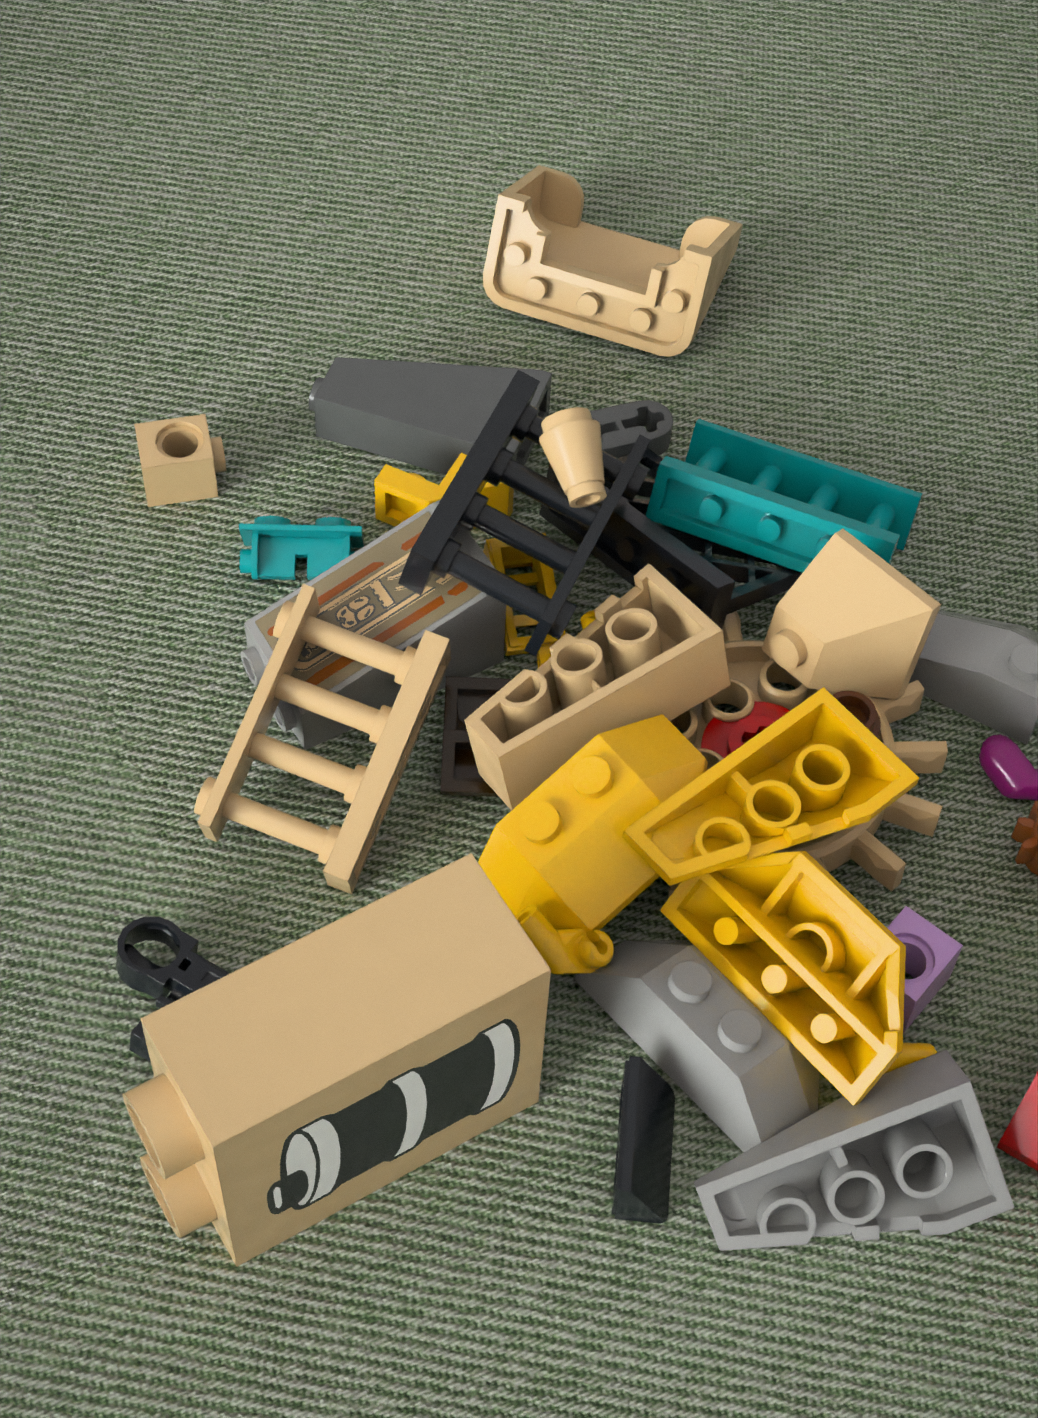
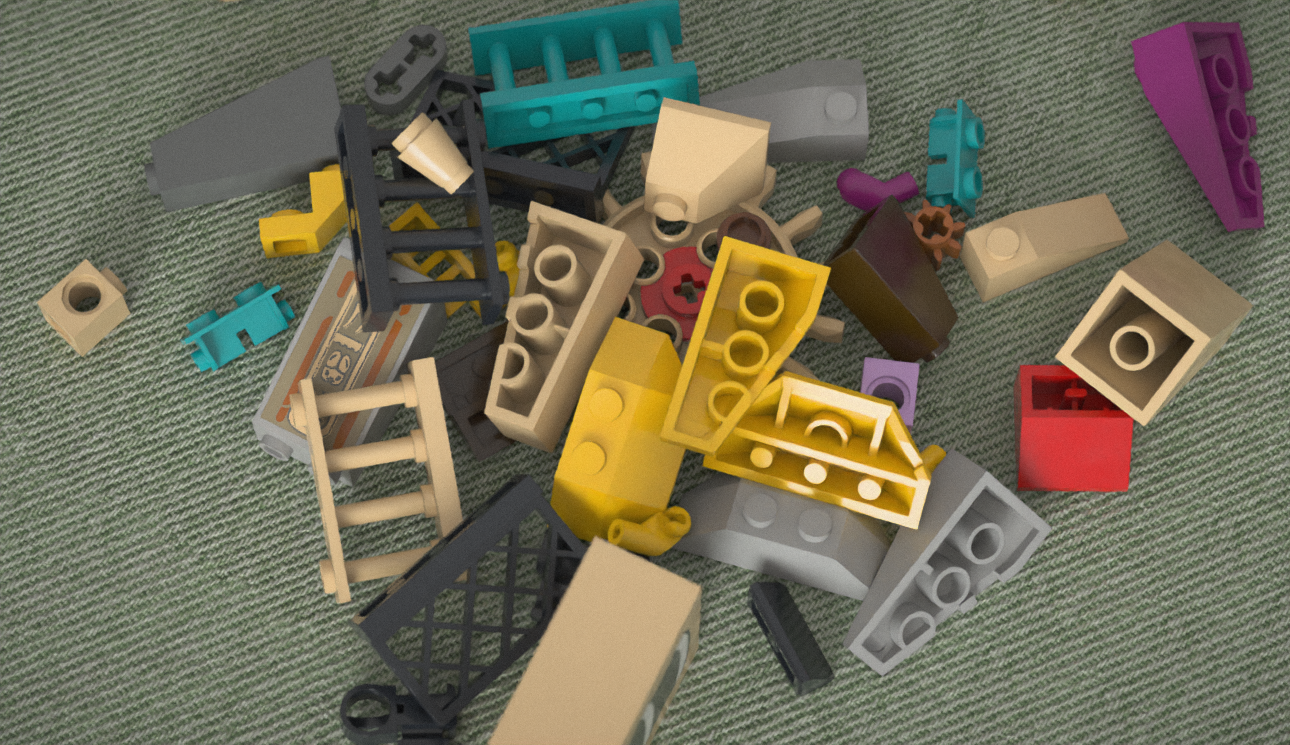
camera: 30 degrees left, 15 degrees up
(309, 842) = (439, 570): none -> black fence
(979, 854) = (891, 284): none -> dark brown slope

